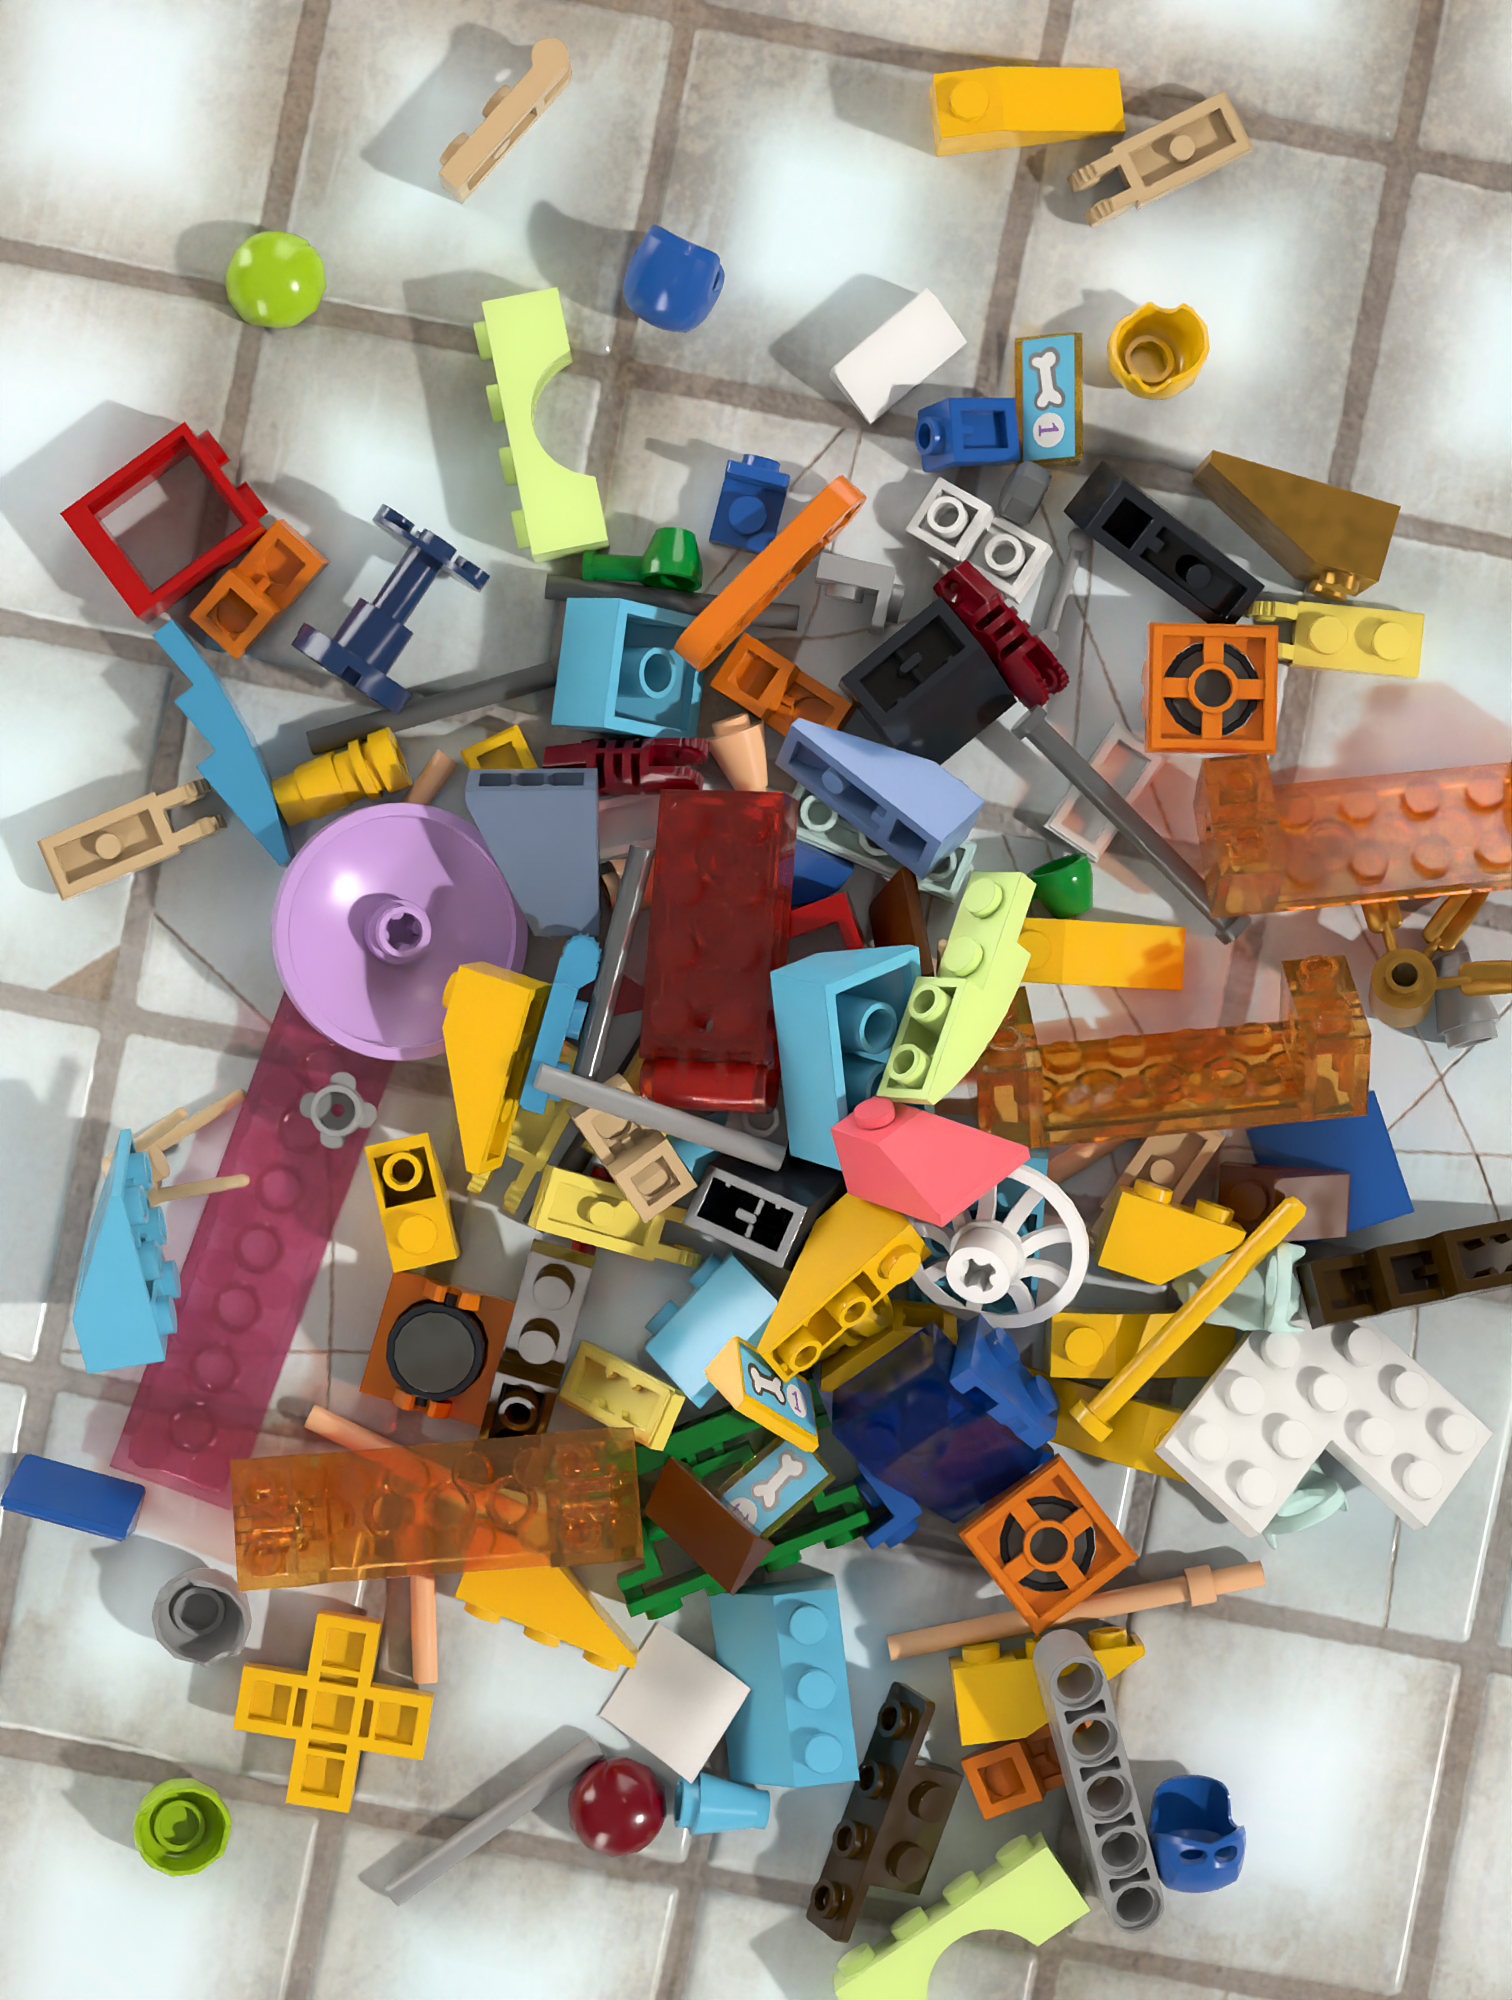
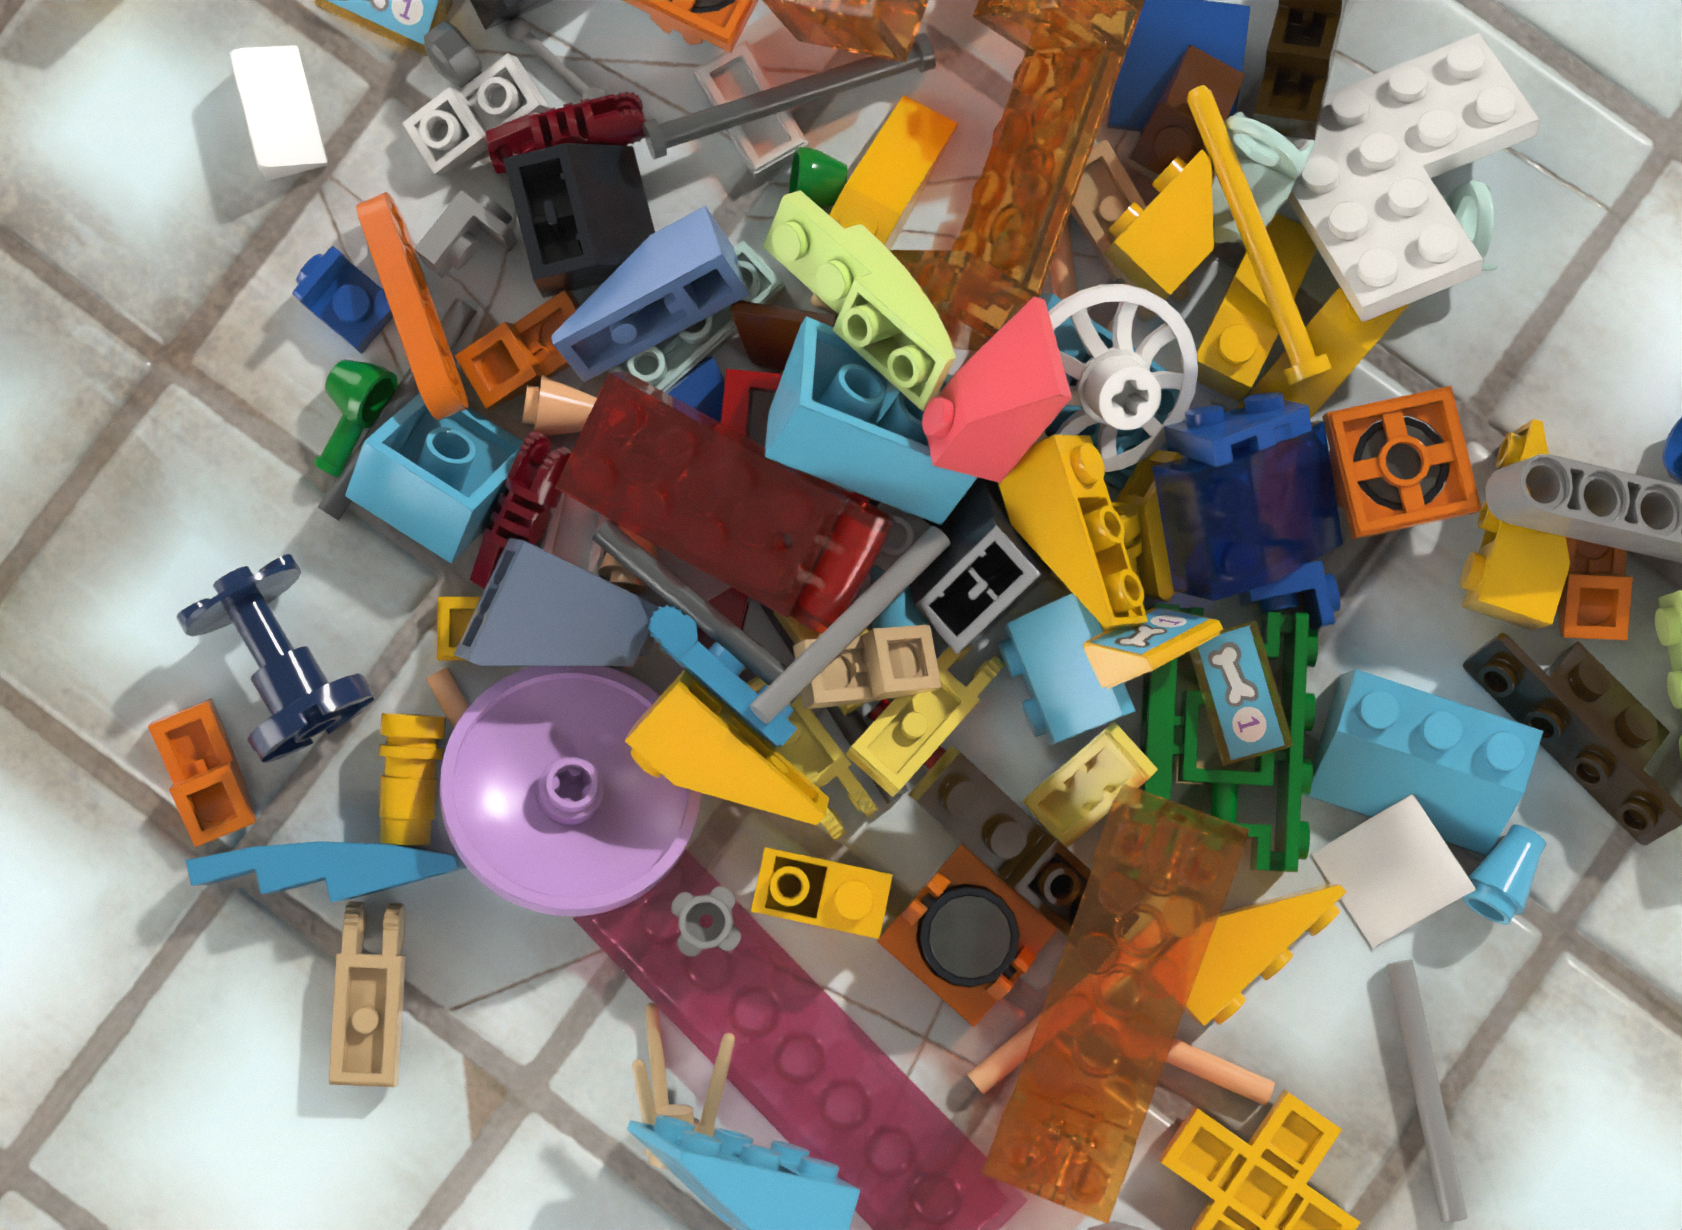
camera: 55 degrees left, 5 degrees down
(87, 514) = (44, 832): red window -> none
(434, 707) = (387, 664): dark grey bar -> none
(528, 347) = (108, 427): yellowish green arch -> none
(617, 1807) = (1465, 970): dark red hair -> none
(672, 281) = (109, 269): blue helmet -> none
(706, 1525) = (1246, 759): reddish brown slope -> none
(967, 433) = (375, 79): blue bracket -> none
(1198, 1585) = (1497, 354): light nougat bar -> none

